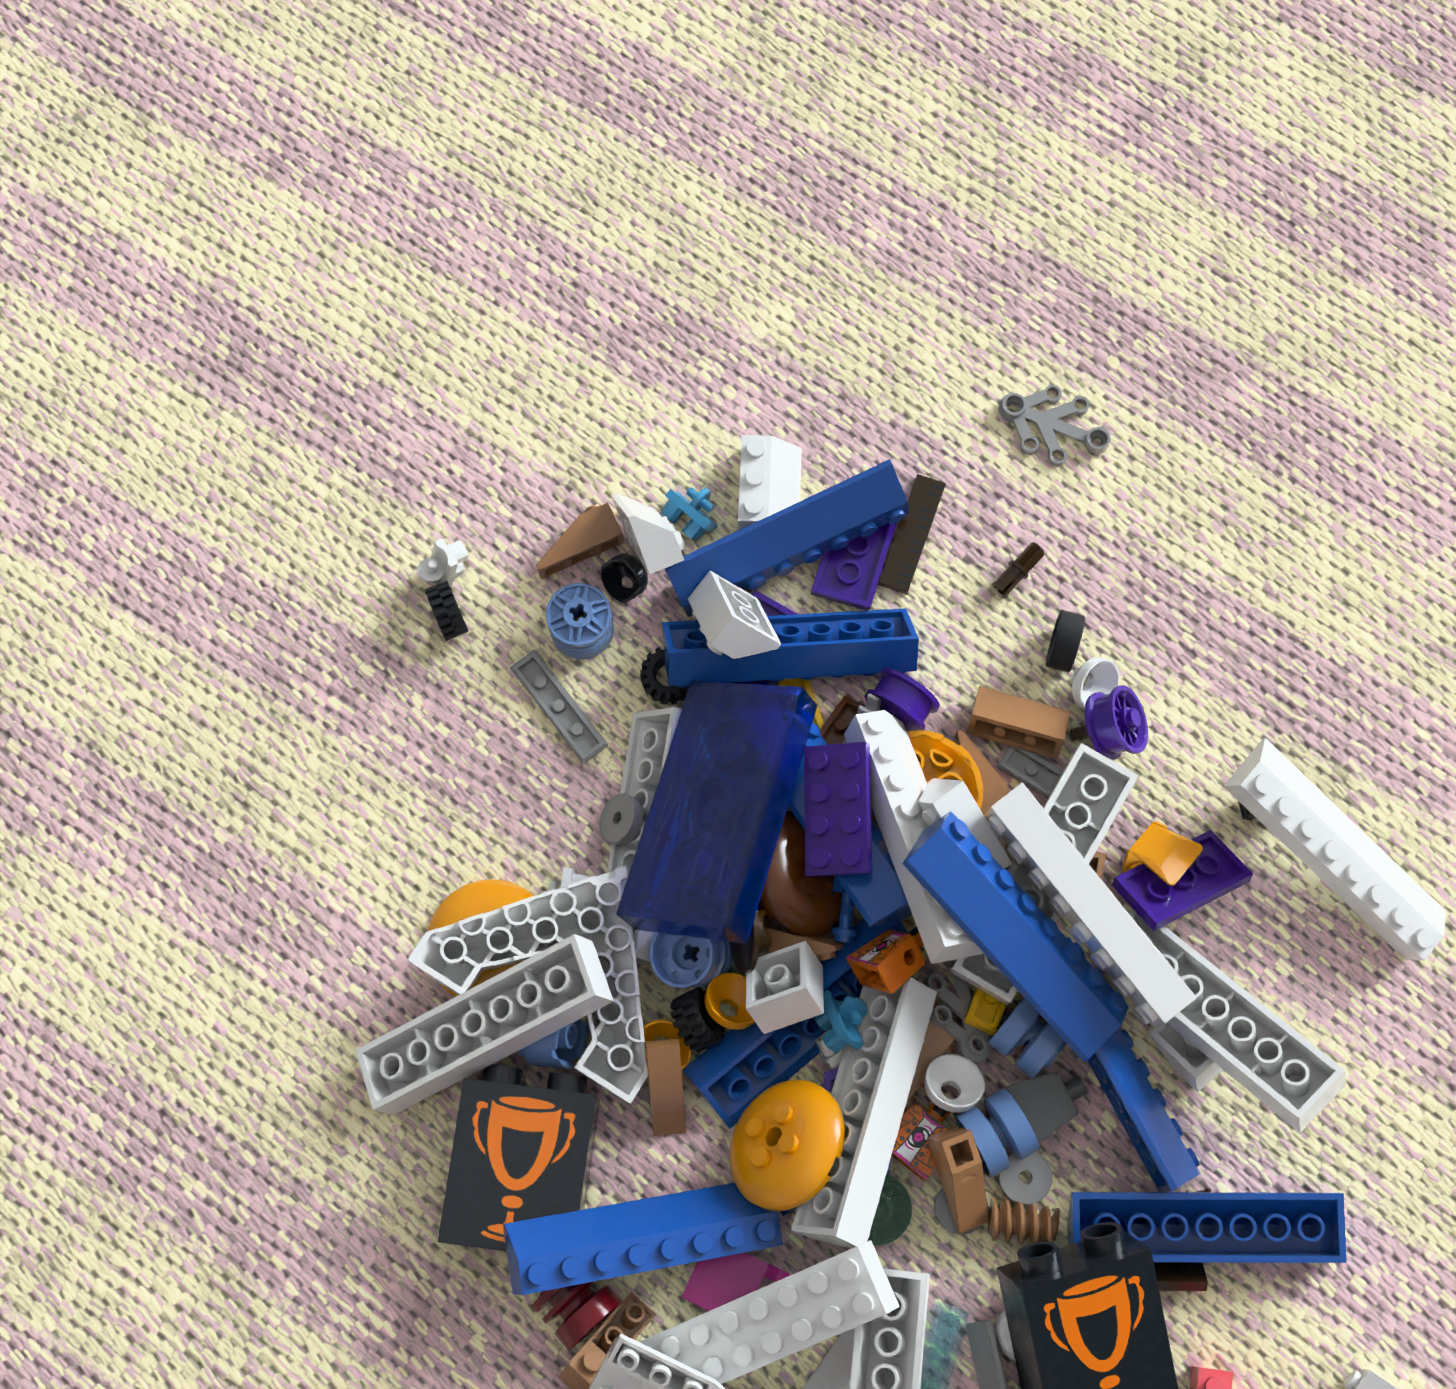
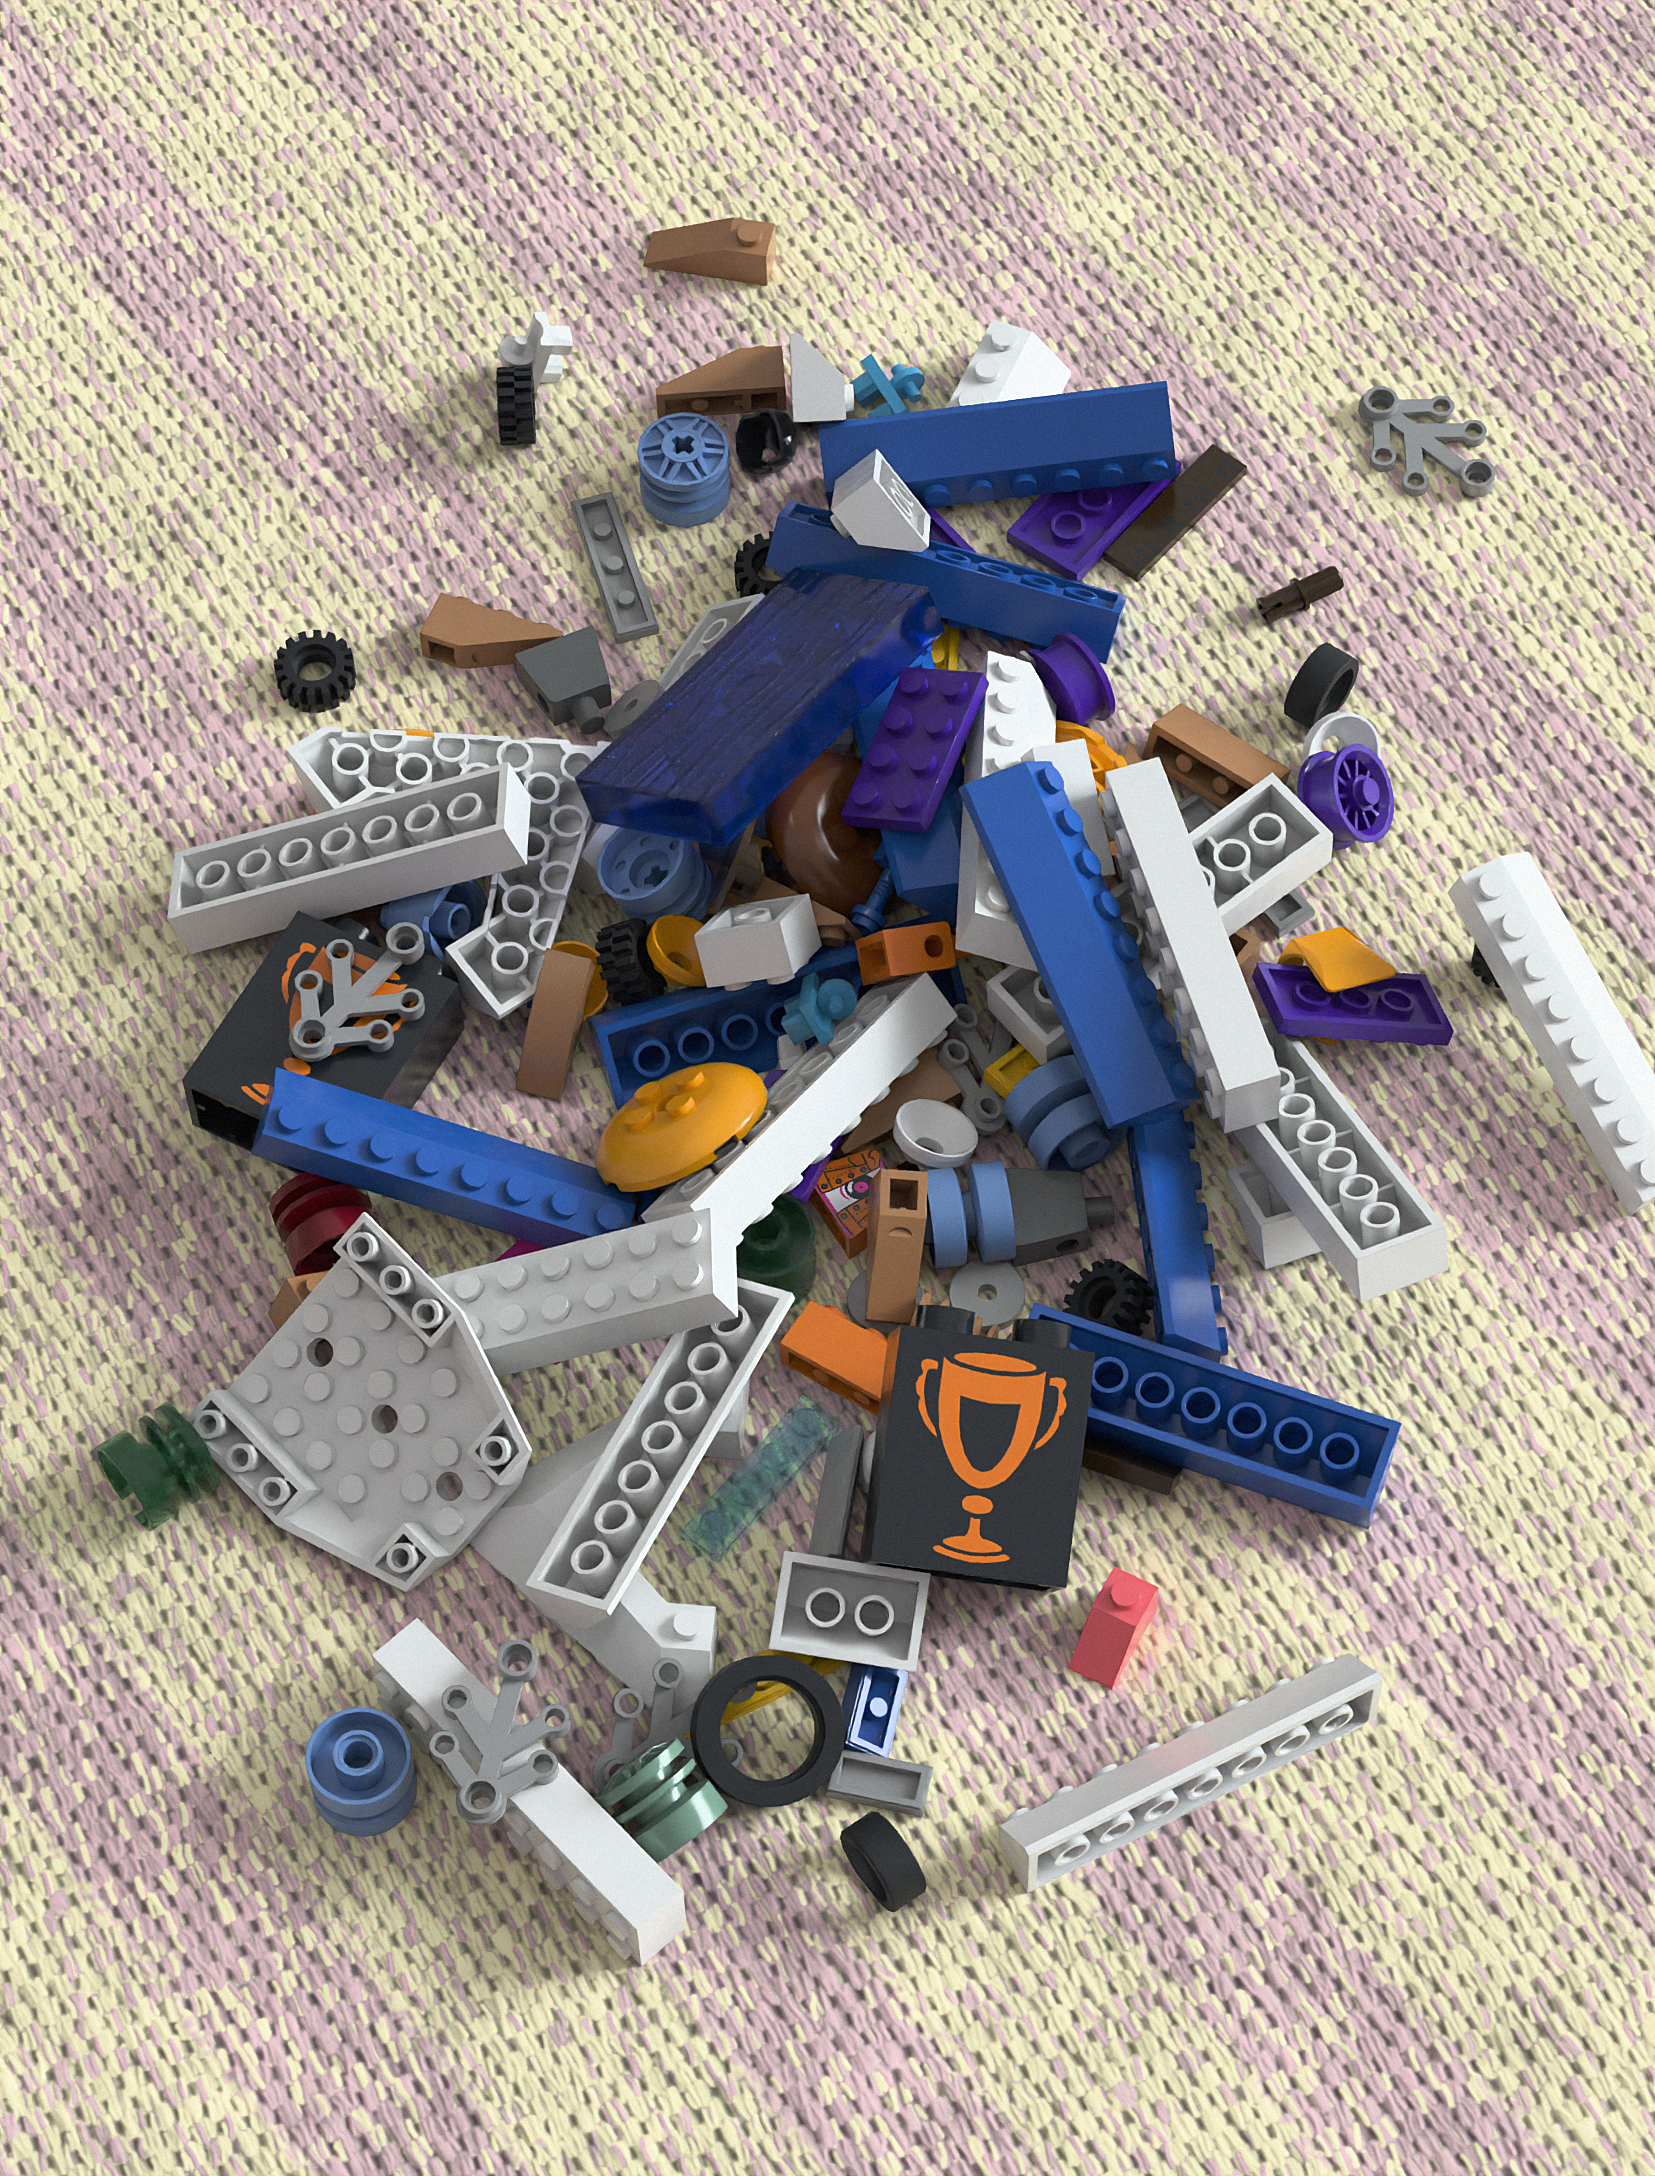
camera: 20 degrees right, 15 degrees down
(377, 849) = (320, 691): none -> black tyre
(487, 798) = (478, 636): none -> medium nougat slope
(529, 438) = (716, 249): none -> medium nougat slope
(530, 1139) = (356, 999): none -> light grey plant
(565, 809) = (568, 679): none -> dark grey torso
(961, 1263) = (837, 1354): none -> orange brick
(1127, 1154) = (1103, 1283): none -> black tyre

